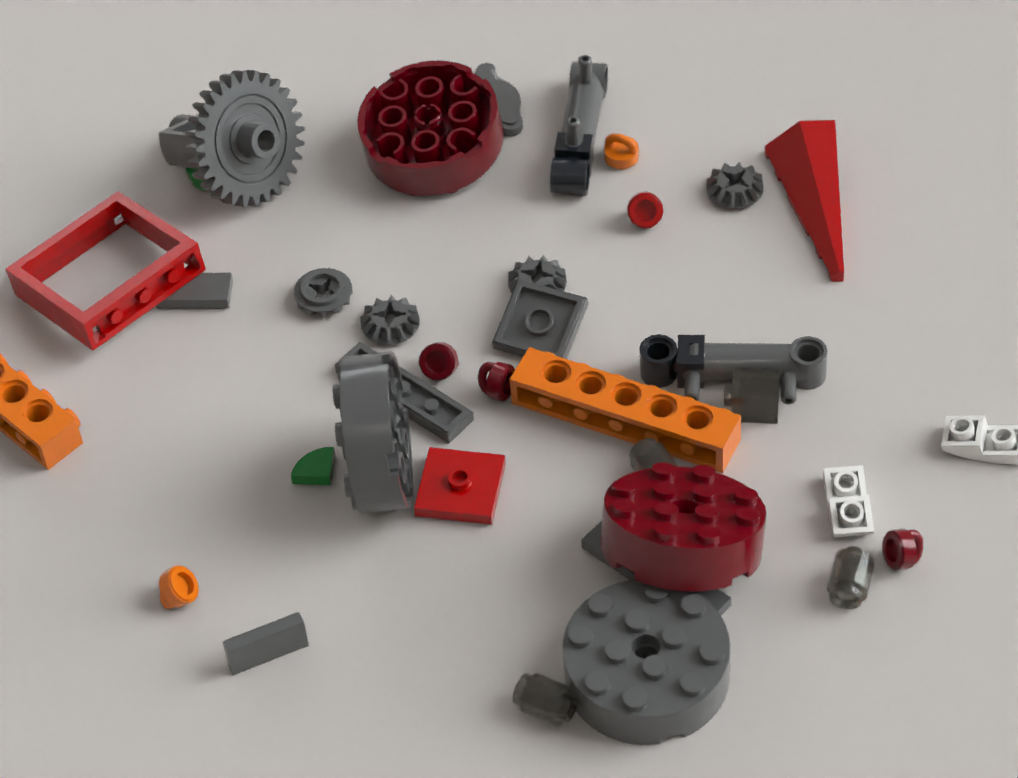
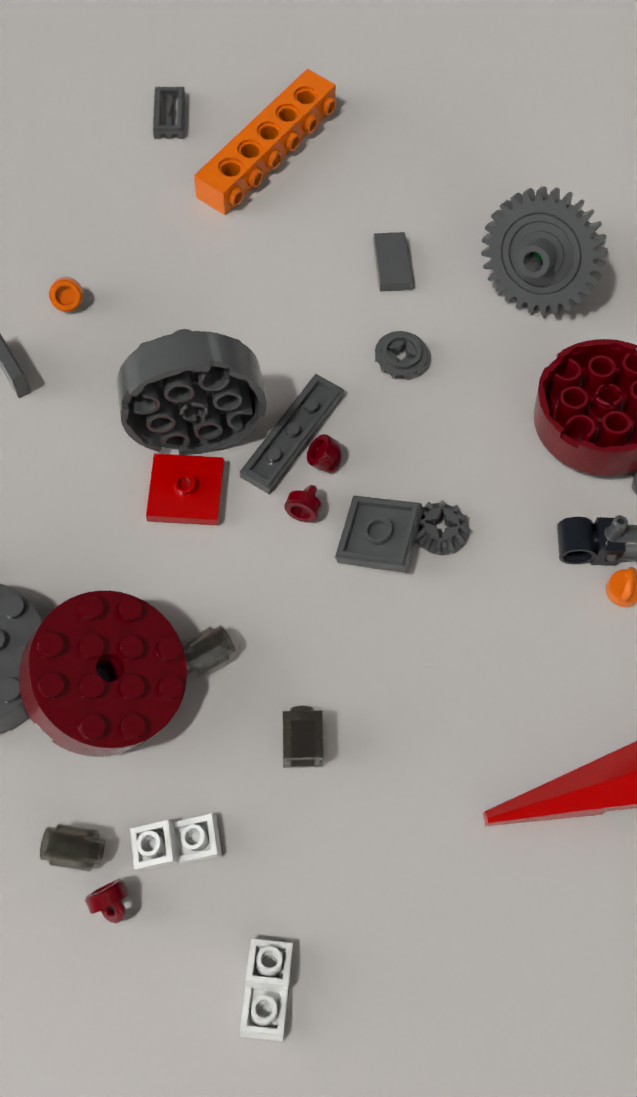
camera: 75 degrees right, 15 degrees up
(125, 302) = (375, 219): red window -> none
(403, 324) = (362, 417): dark grey gear -> none
(625, 408) = (299, 533): orange brick -> none
(645, 210) = (542, 614): red tile -> none
(737, 195) = (582, 705): dark grey gear -> none
(800, 363) = (345, 714): dark grey piece -> none

